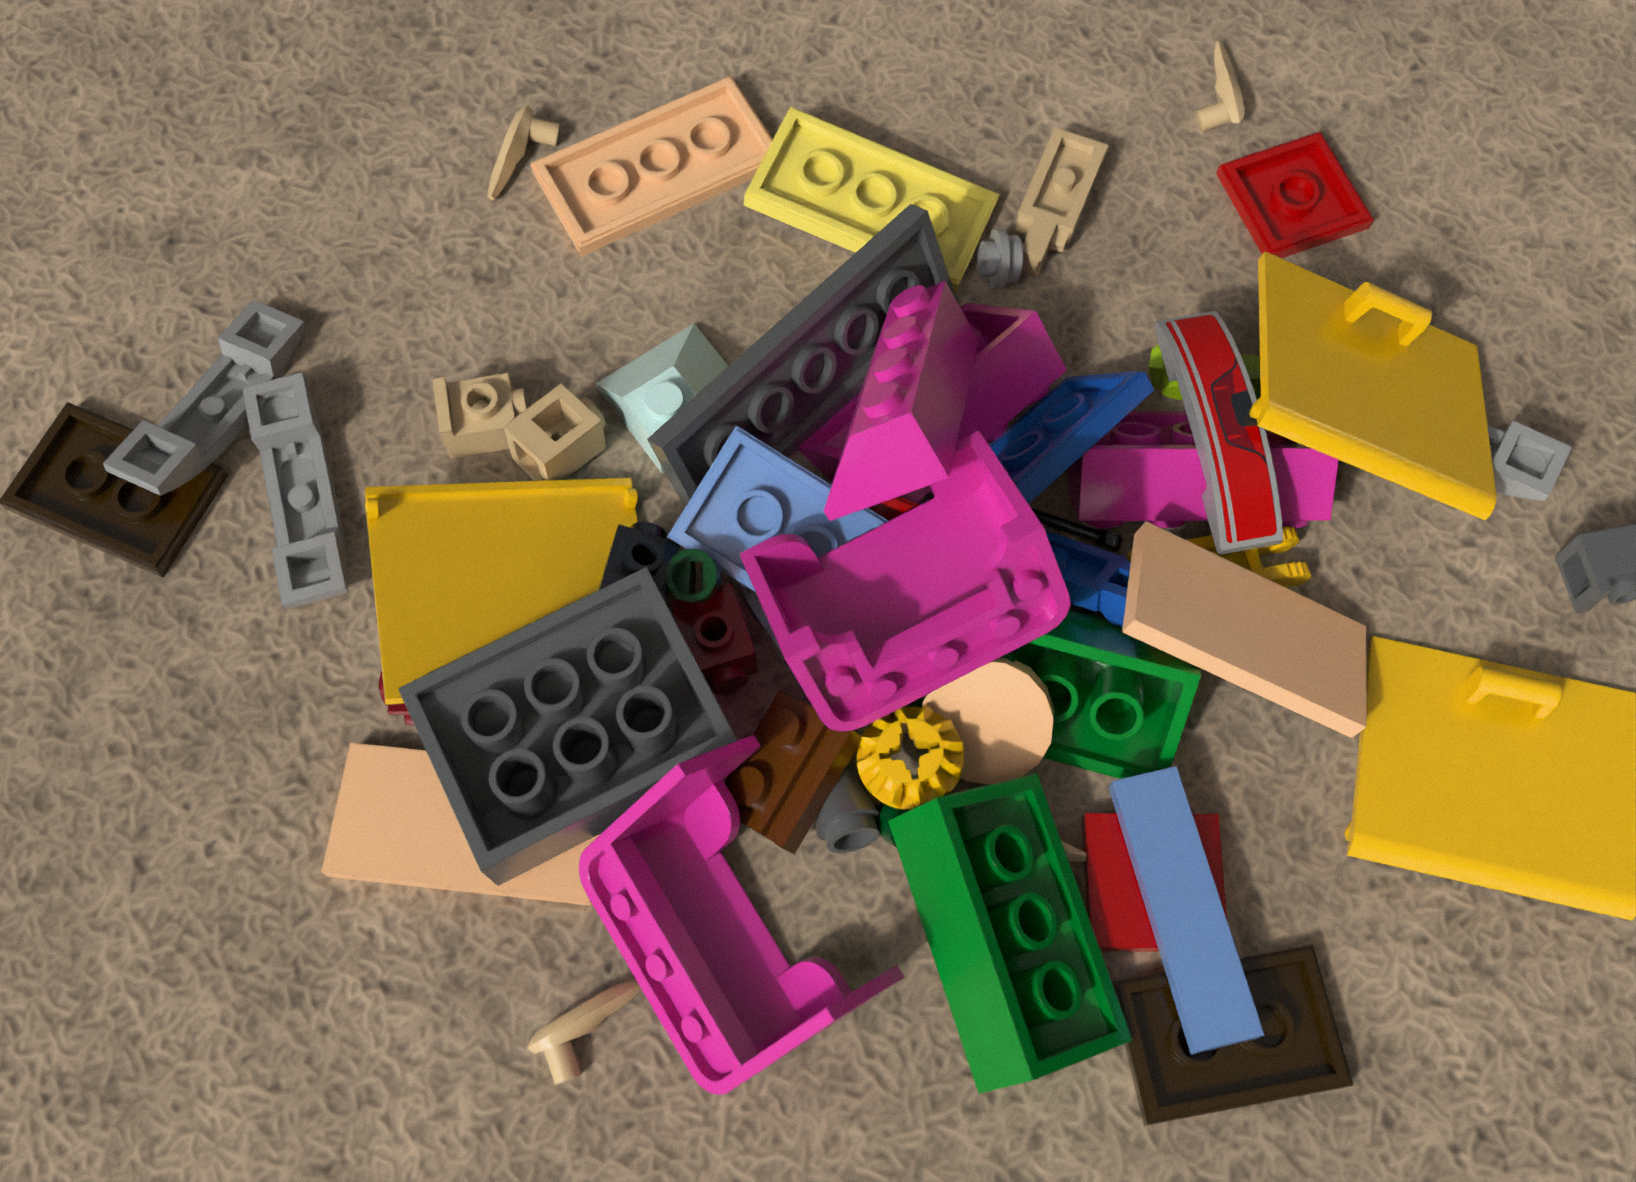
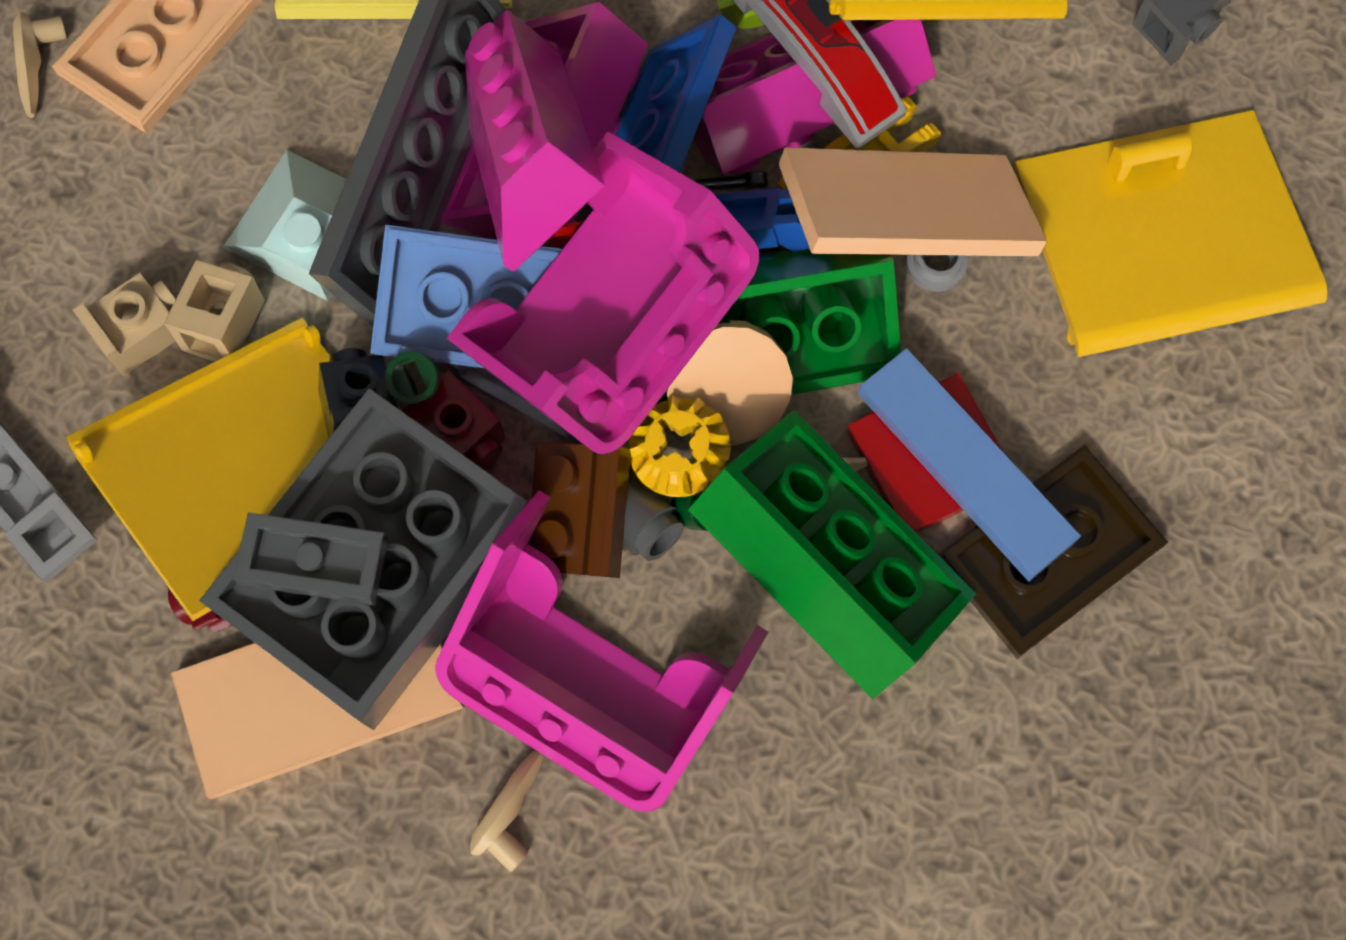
camera: 25 degrees left, 5 degrees up
(512, 698) = (311, 558): none -> dark grey plate
(1240, 715) = (937, 280): none -> light grey plate

